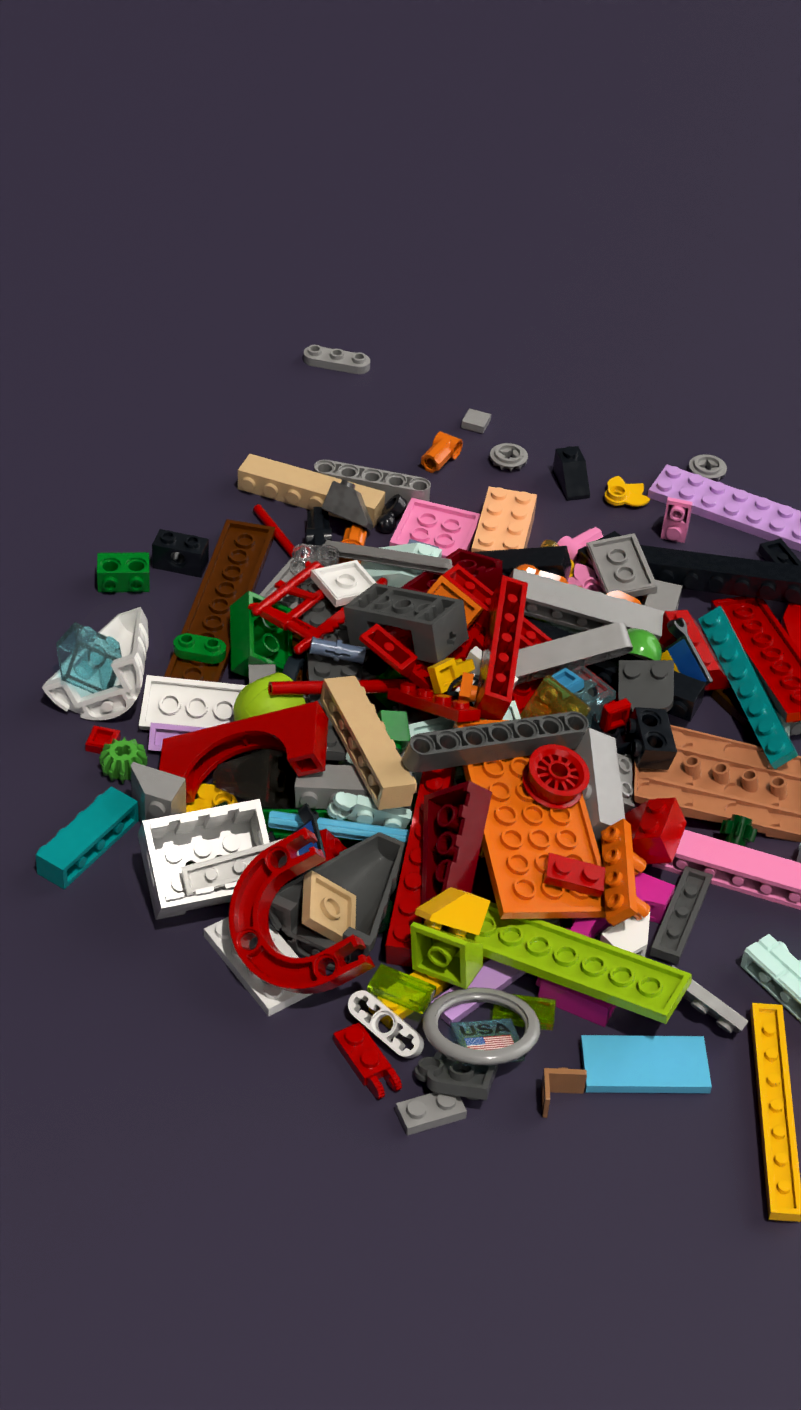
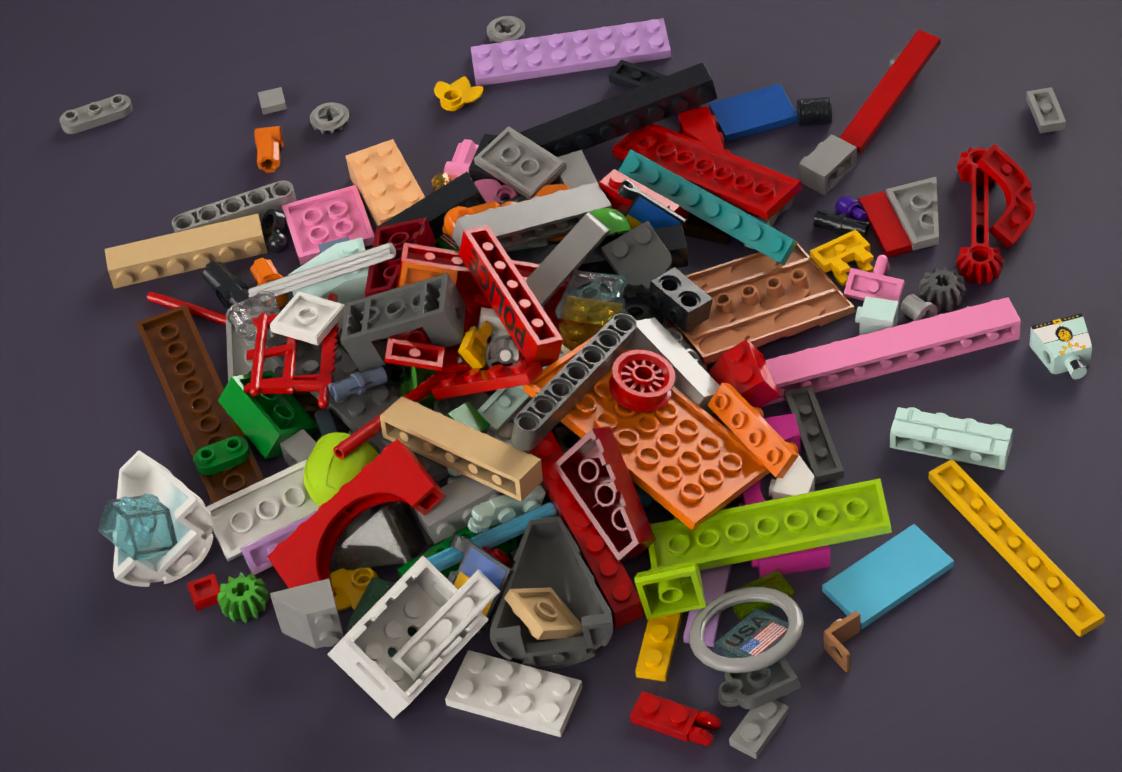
camera: 25 degrees left, 5 degrees up
(87, 837) = (274, 686): teal brick -> none
(123, 572) = (85, 428): green brick -> none
(180, 553) = (122, 379): black brick -> none
(250, 914) = (492, 665): red piece -> none
(347, 503) = (237, 244): flat silver slope -> none
(364, 1017) = (643, 669): white beam -> none
(401, 988) = (655, 641): clear neon green tile -> none
(456, 909) = (656, 546): yellow slope -> none
(467, 690) = (507, 351): orange plate -> none
(569, 680) = (577, 289): dark azure tile -> none
(571, 473) = (398, 102): black slope -> none
(574, 875) = (720, 455): red plate -> none
(615, 715) = (635, 297): red tile -> none
(676, 520) = (524, 93): bright pink slope -> none
(709, 1004) = (905, 494): light grey wing -> none
(738, 830) = (802, 335): dark green gear -> none

